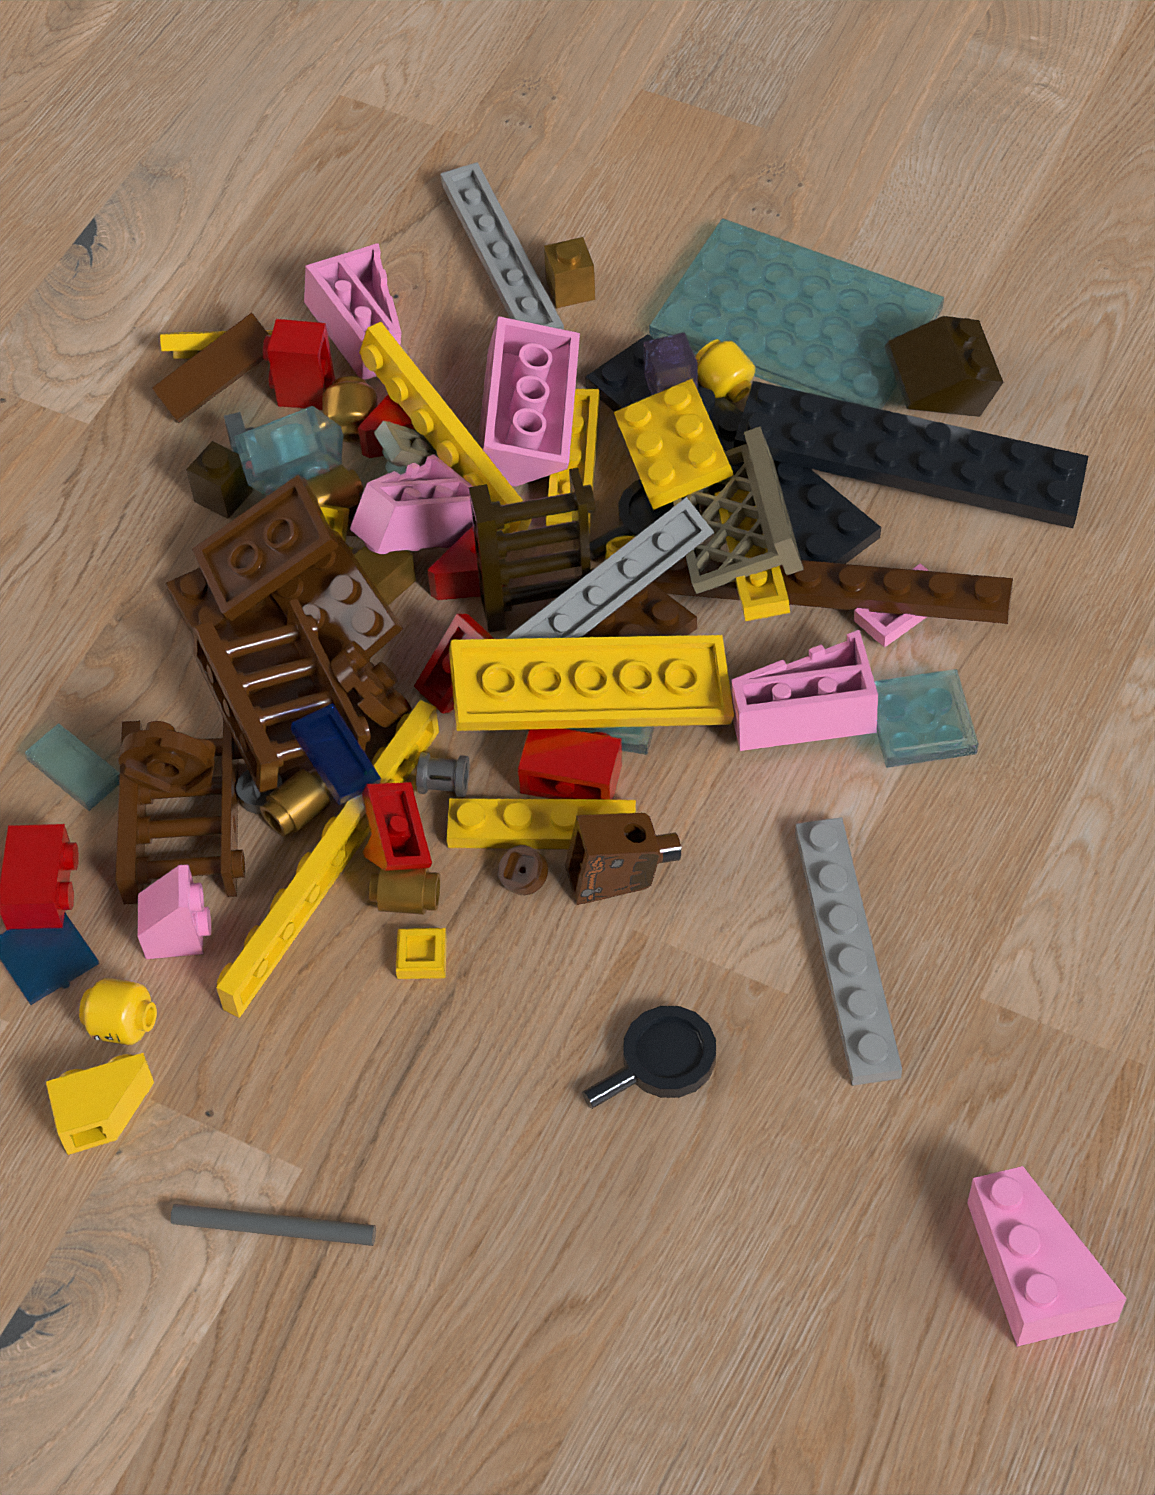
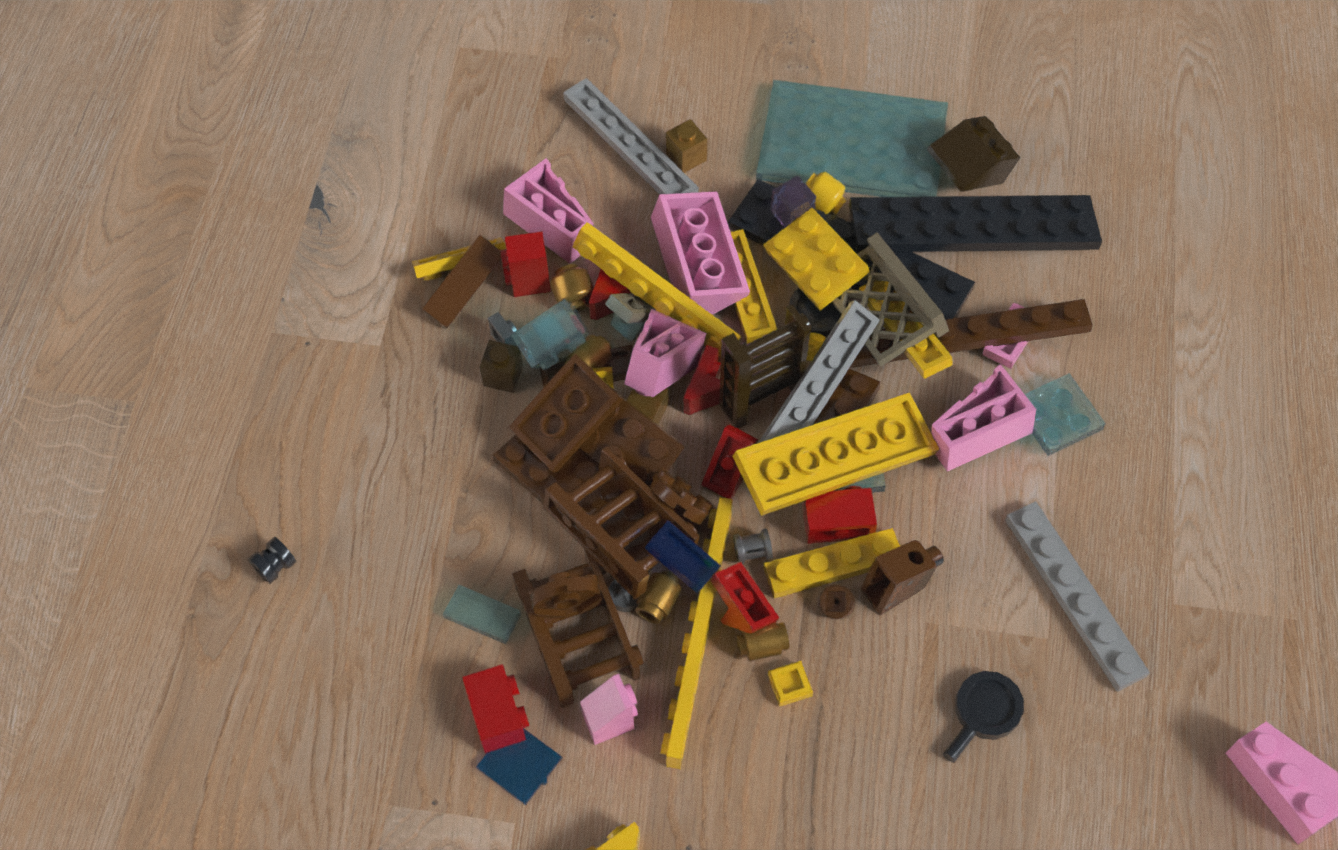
camera: 20 degrees left, 5 degrees up
(117, 1011) = (597, 793): yellow head -> none

